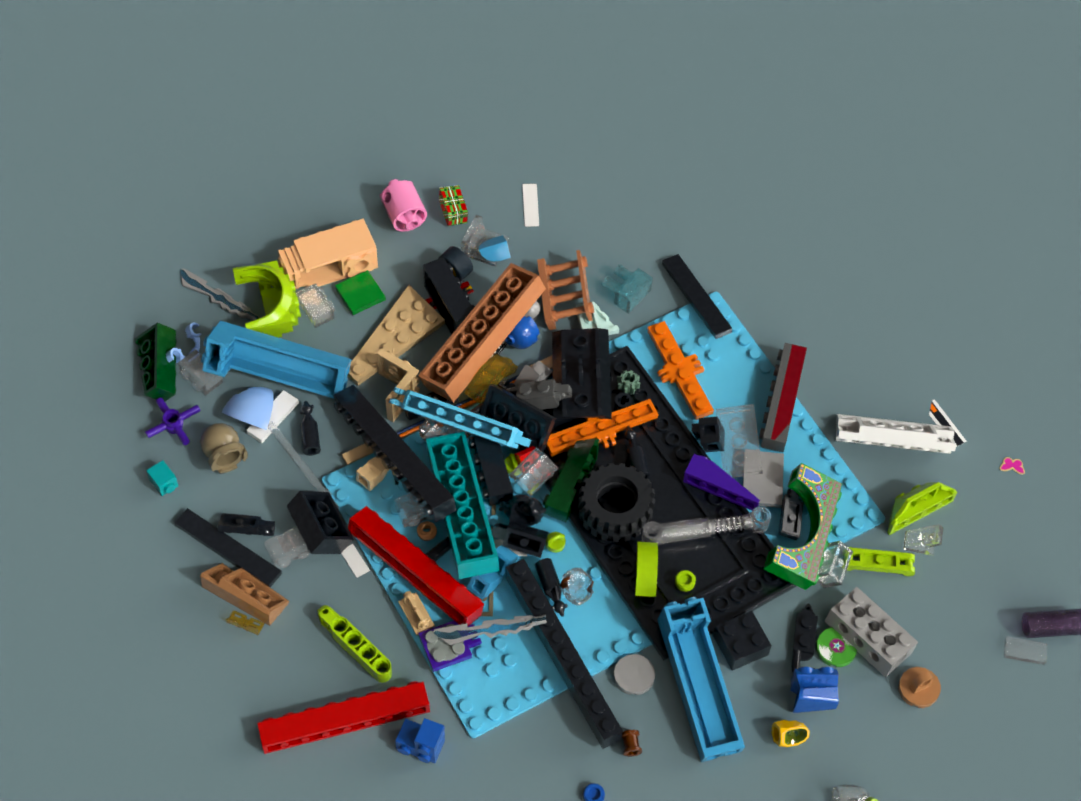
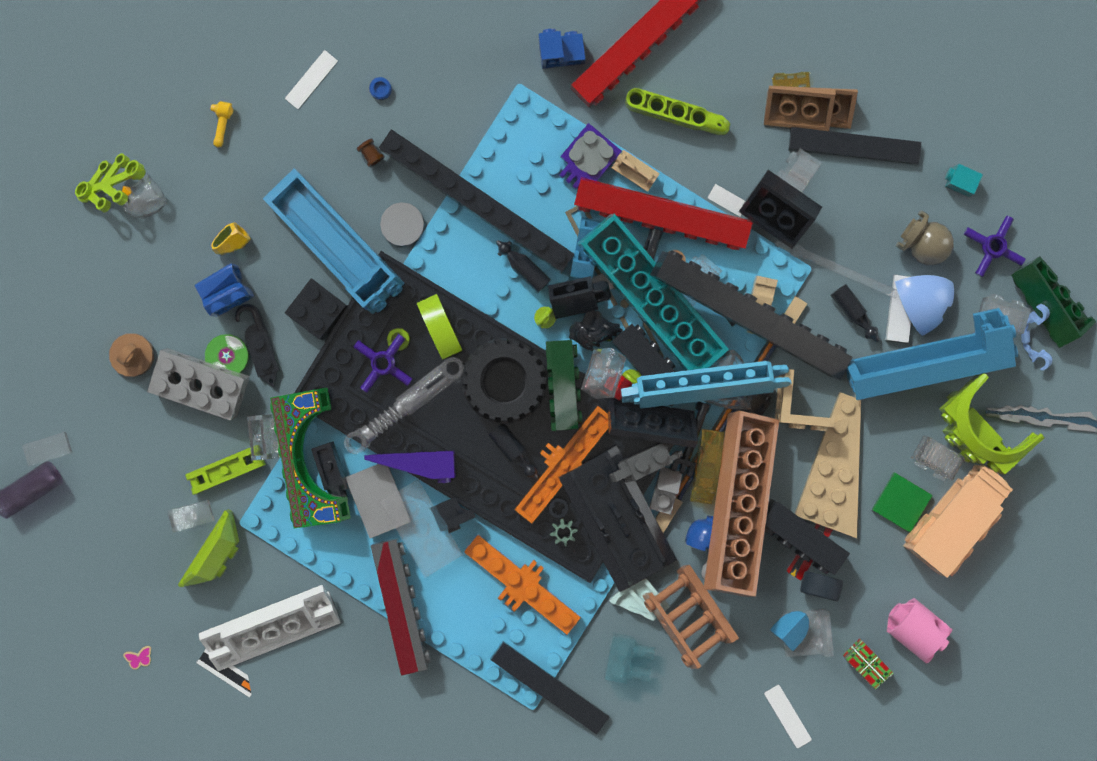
camera: 150 degrees right, 30 degrees up
(245, 525) = (853, 175): black hinge -> none
(491, 628) = (582, 165): light grey sword -> none
(577, 586) = (497, 275): clear hair -> none
(705, 572) = (377, 371): none -> dark purple bar

